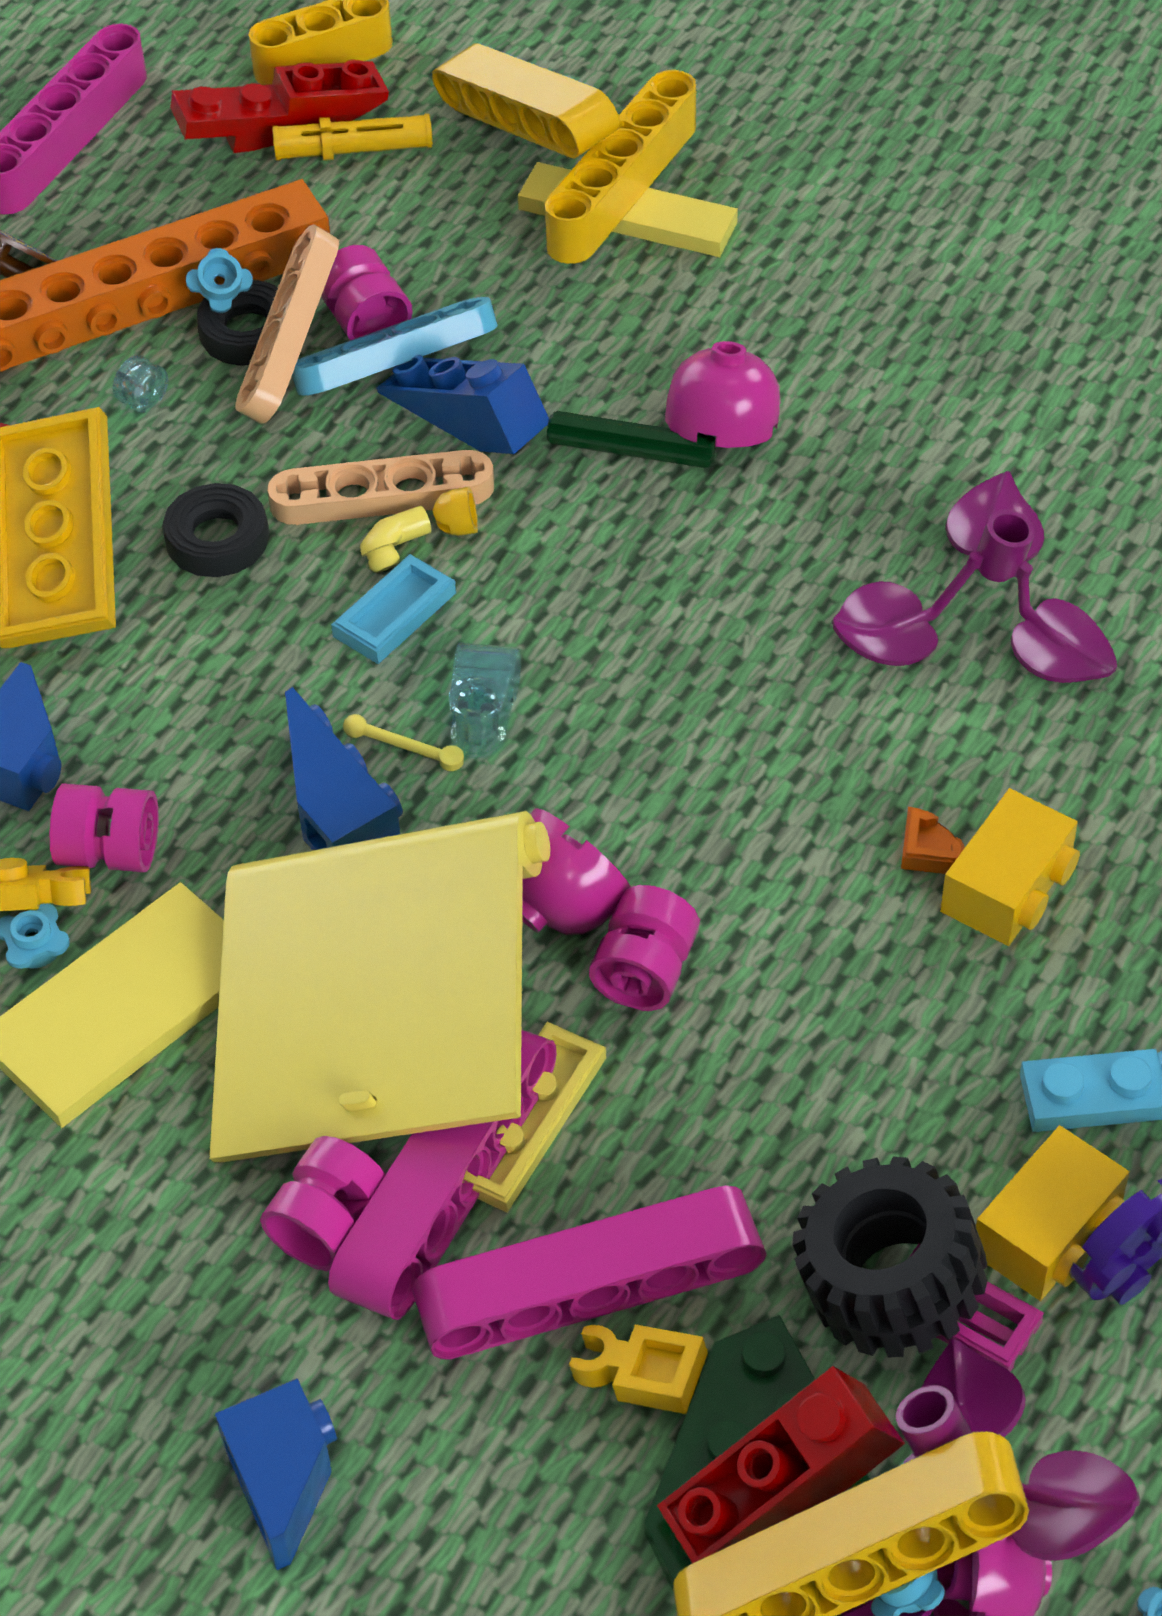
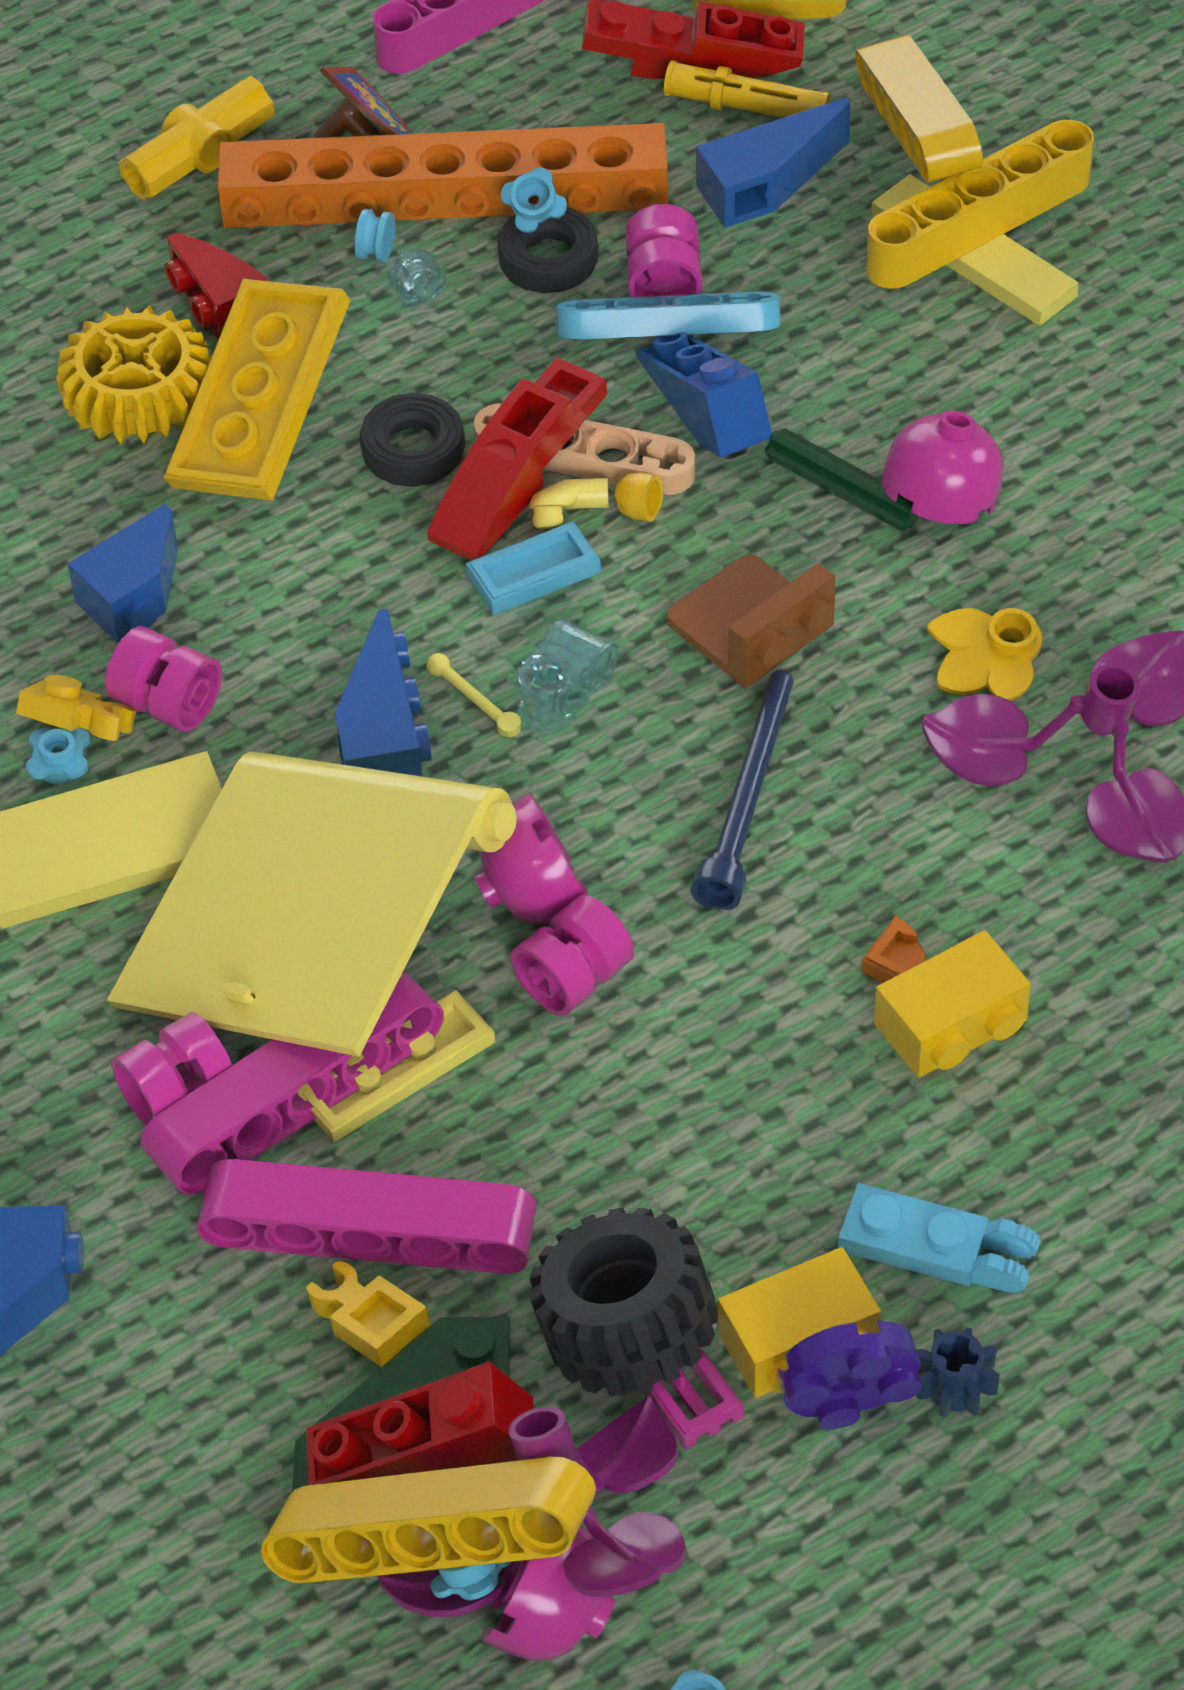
camera: 25 degrees right, 0 degrees up
(79, 358) = (374, 235): none -> medium azure bush
(287, 324) = (573, 262): light nougat beam -> none
(328, 514) = (510, 455): none -> red slope
(404, 192) = (767, 164): none -> blue slope
(626, 586) = (754, 616): none -> dark orange bracket
(731, 828) = (721, 877): none -> dark blue piece
(846, 546) = (981, 656): none -> yellow plate

